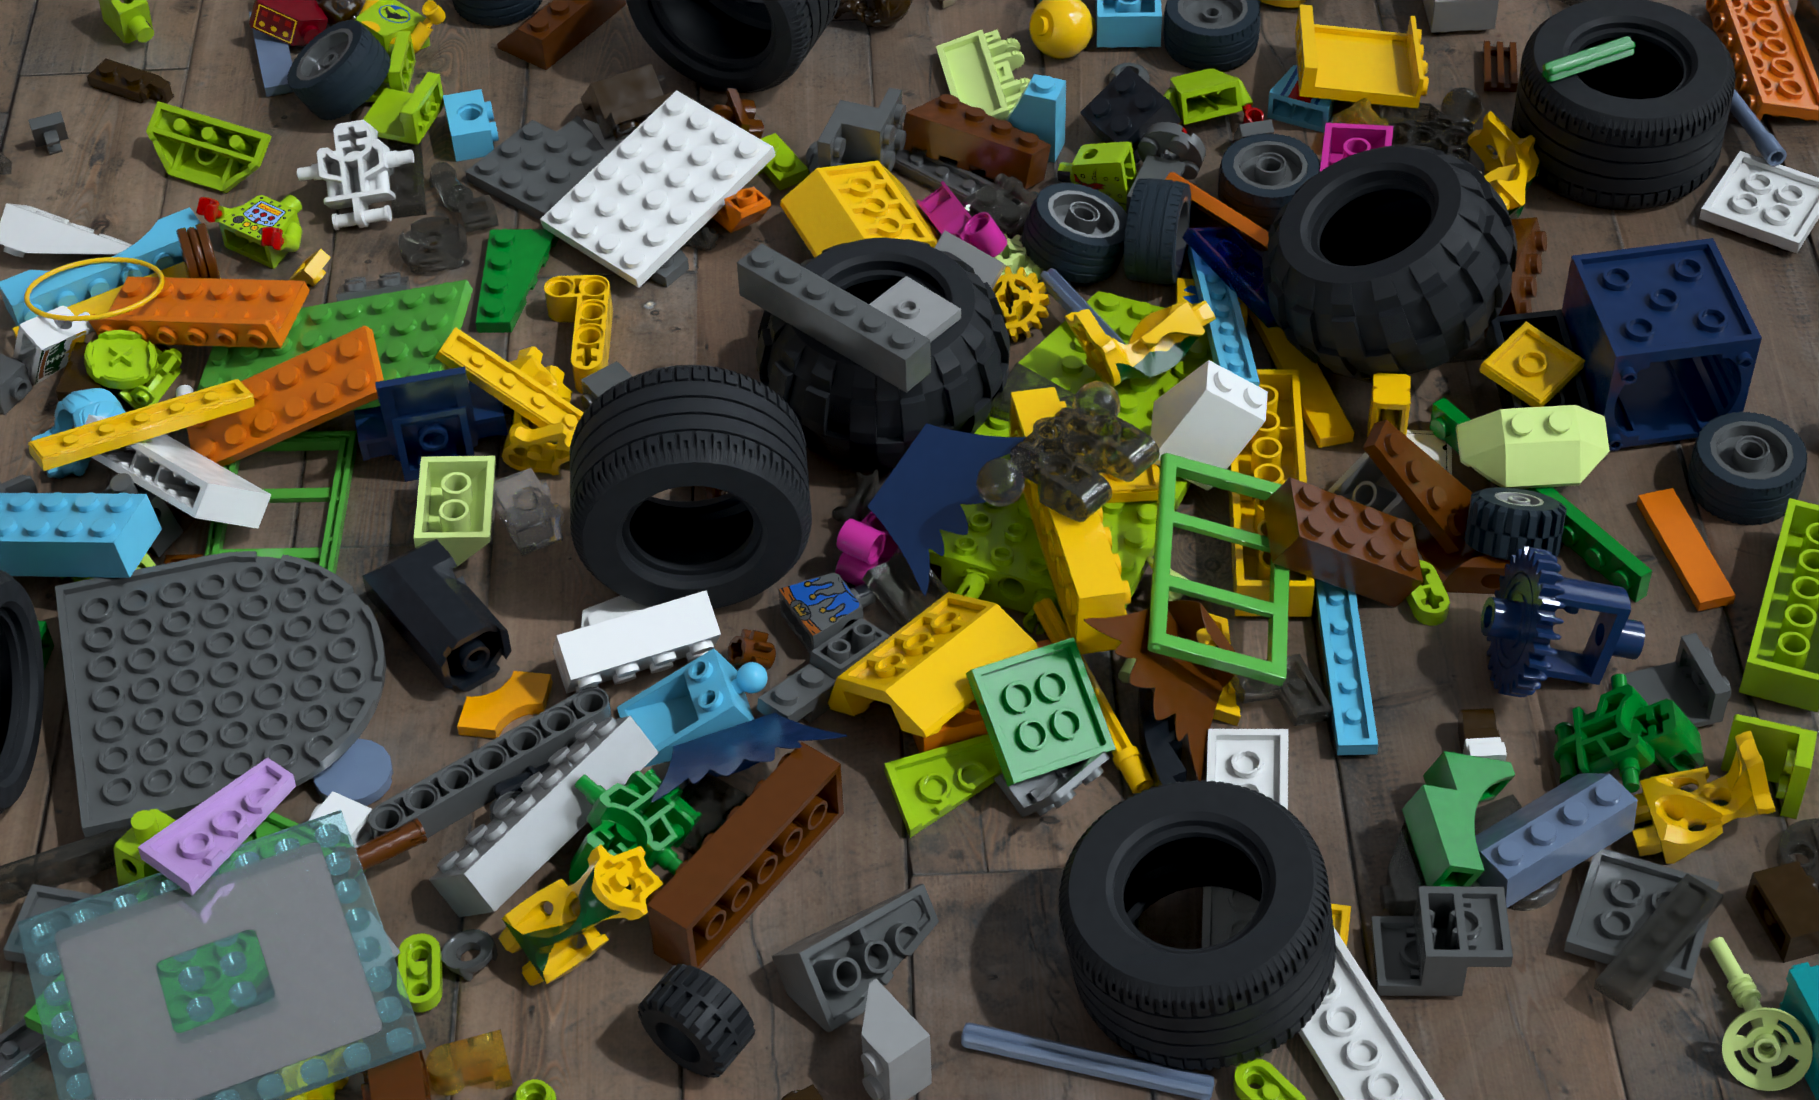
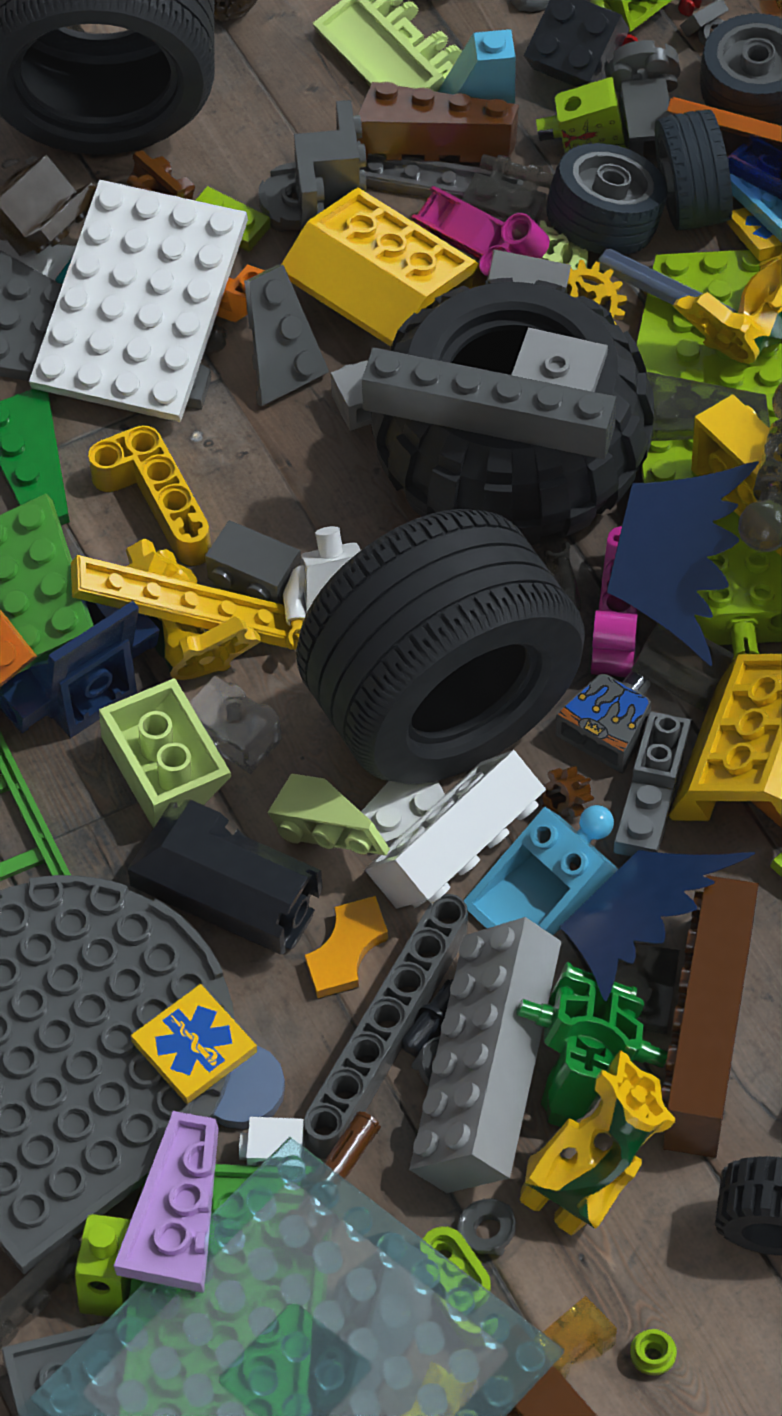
camera: 25 degrees left, 10 degrees up
(319, 717) = (194, 1043): none -> yellow tile
(541, 596) = (319, 814): none -> yellowish green slope
(747, 227) = (282, 339): none -> dark grey wing

